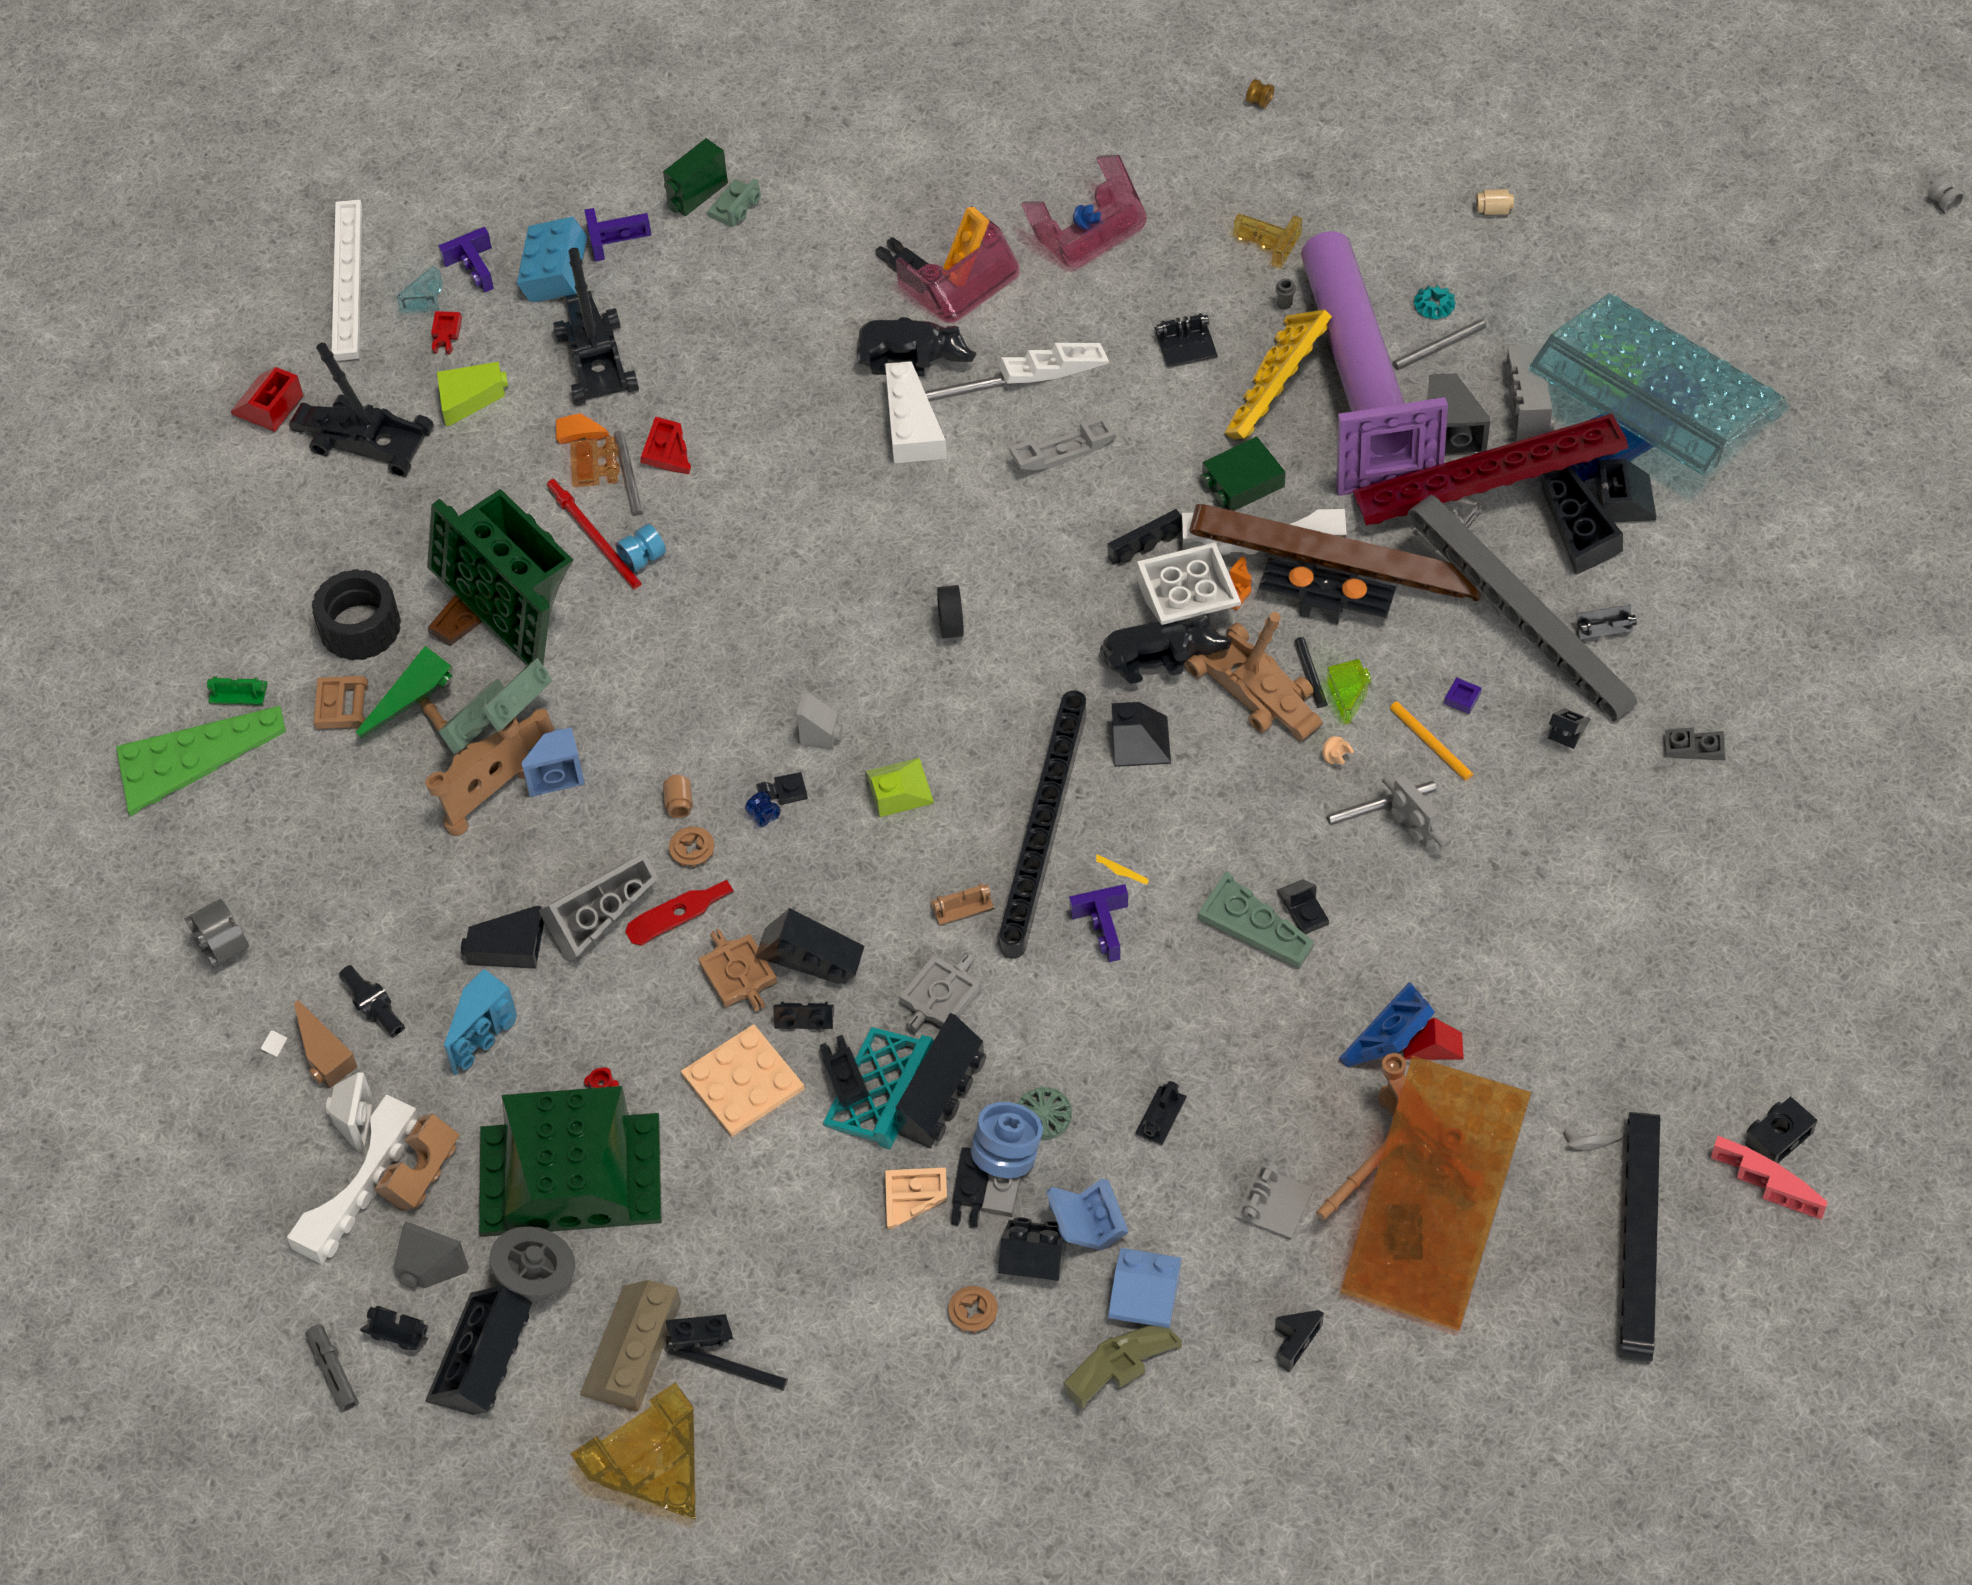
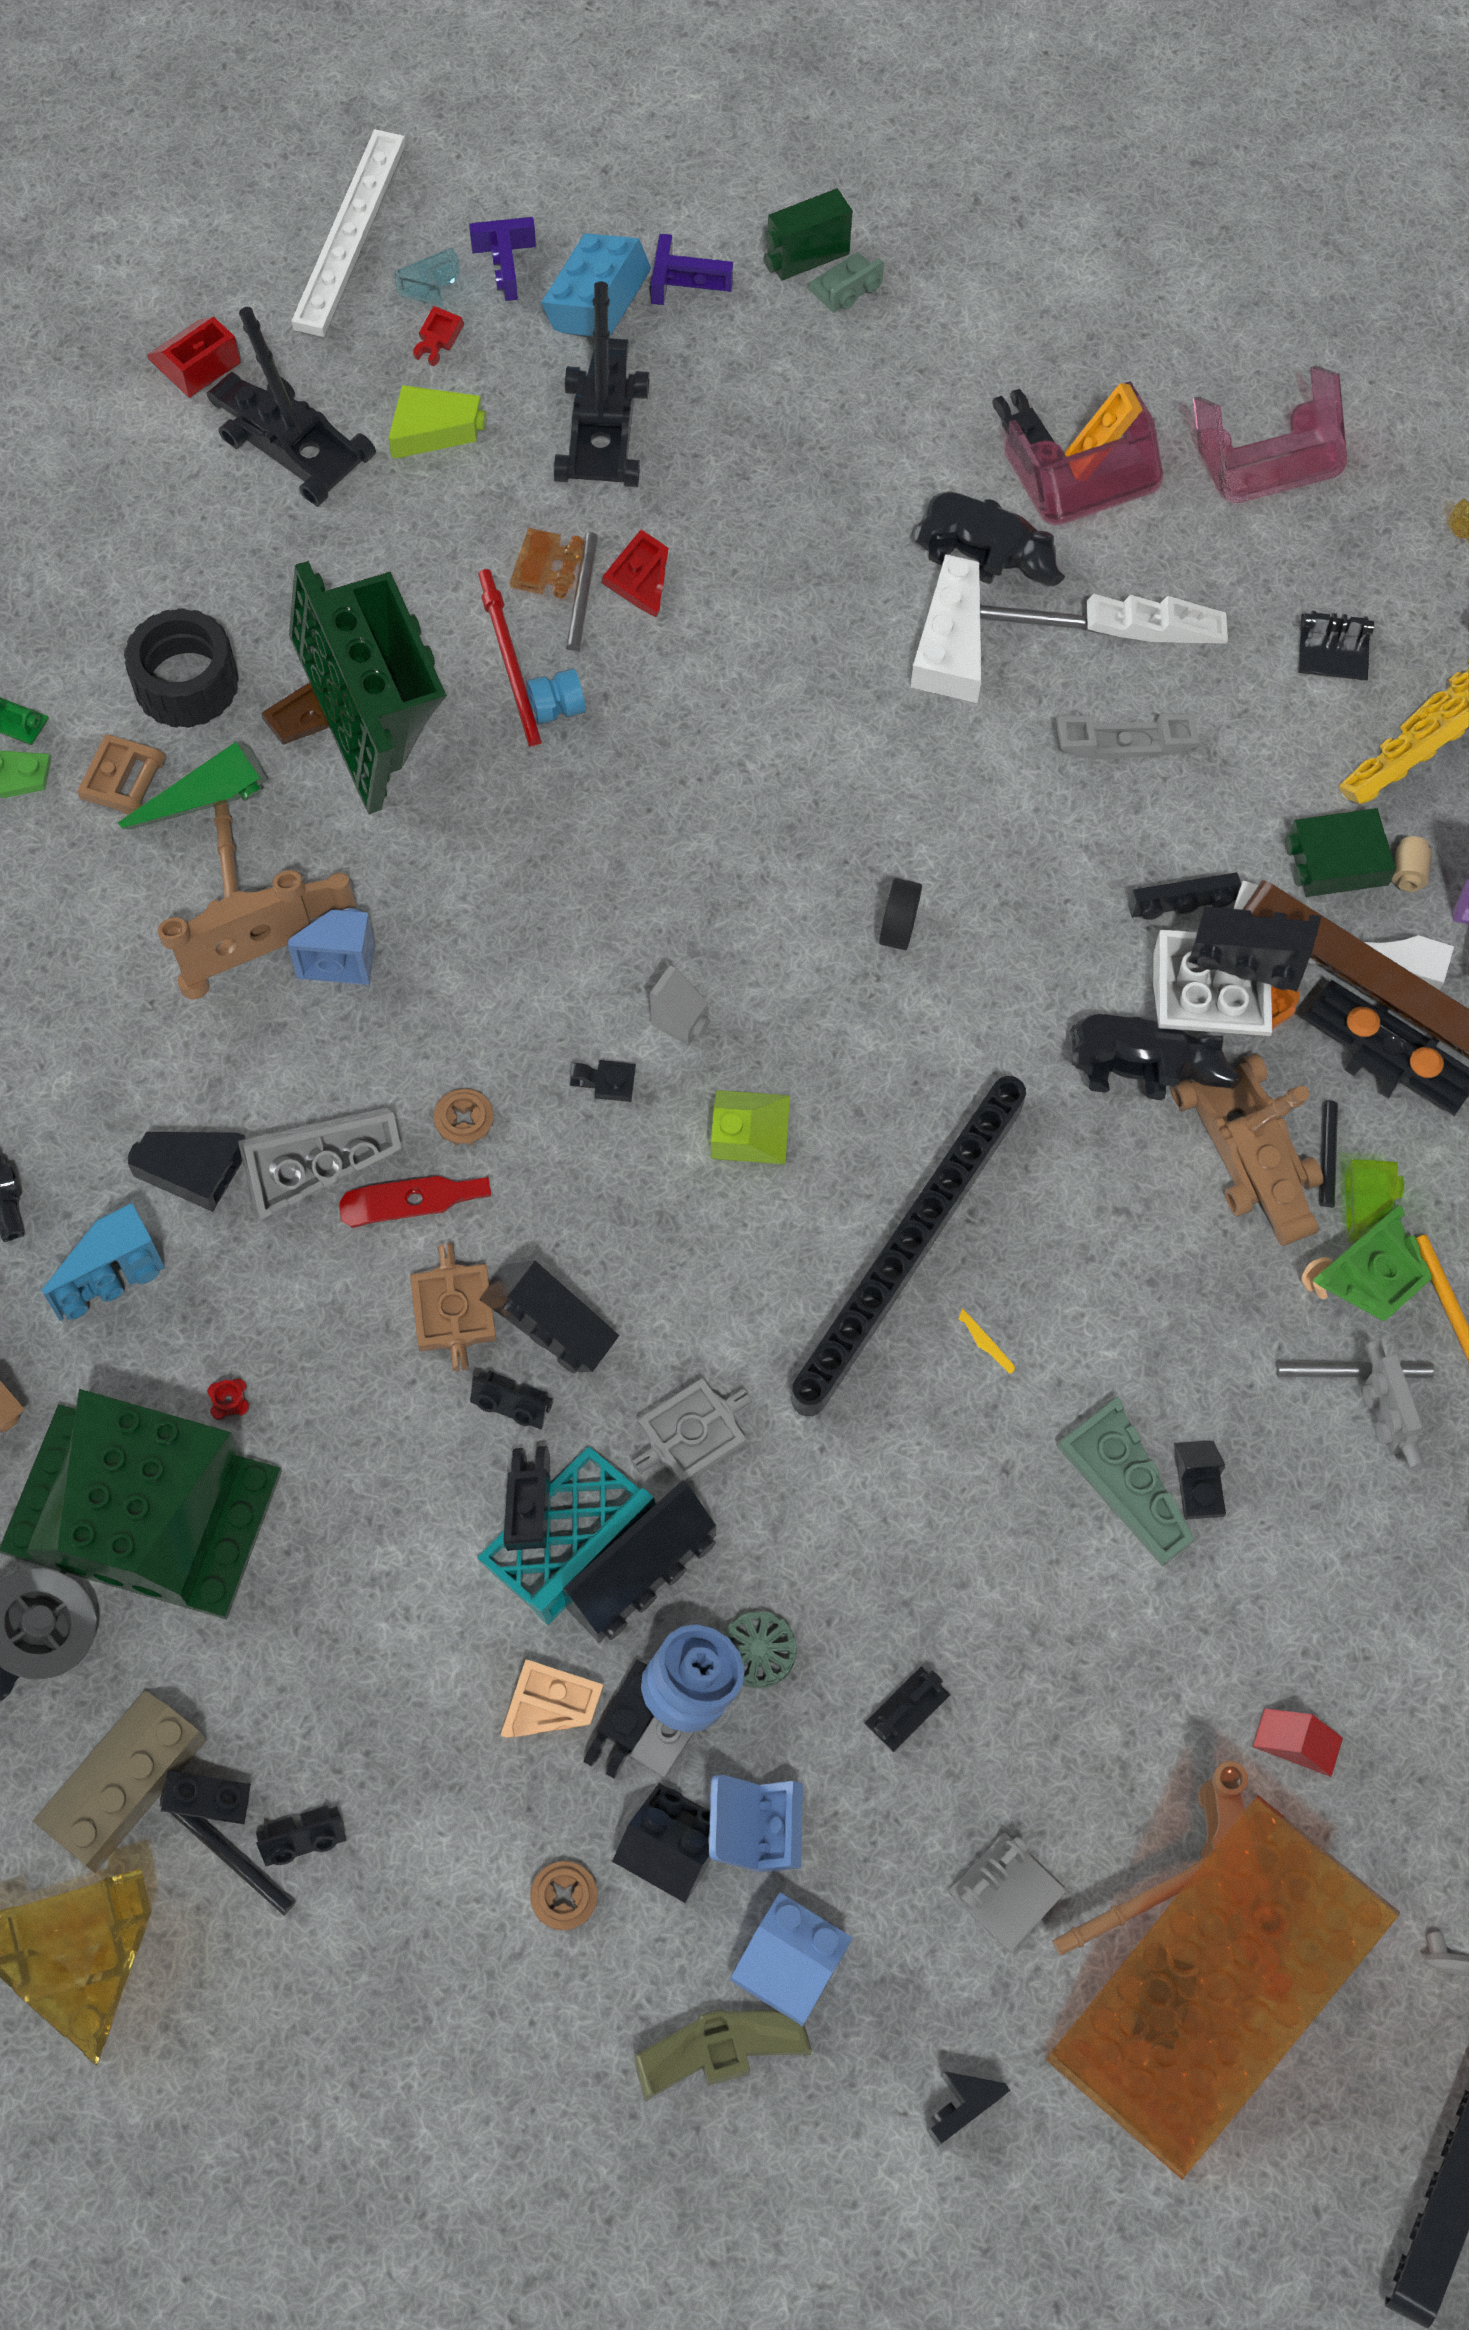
camera: 15 degrees right, 10 degrees up
(495, 706) = (288, 851): sand green fence -> none
(576, 427) = (544, 510): orange slope -> none
(677, 796) = (472, 1043): medium nougat brick -> none
(742, 1080) = (401, 1460): light nougat plate -> none
(762, 808) = (568, 1098): clear blue wheel -> none
(781, 1331) = (281, 1842): none -> black hinge
(962, 904) = (766, 1318): medium nougat hinge -> none
(1084, 216) = (1268, 439): blue plate -> none
(1098, 906) = (938, 1383): dark purple bracket -> none
(1139, 735) = (1077, 1166): black slope -> none
(1207, 548) = (1255, 947): none -> black wedge
(1296, 466) = (1412, 864): none -> tan brick
(1372, 731) = (1378, 1269): none -> bright green wing
(1391, 1028) = (1252, 1702): blue wing -> none

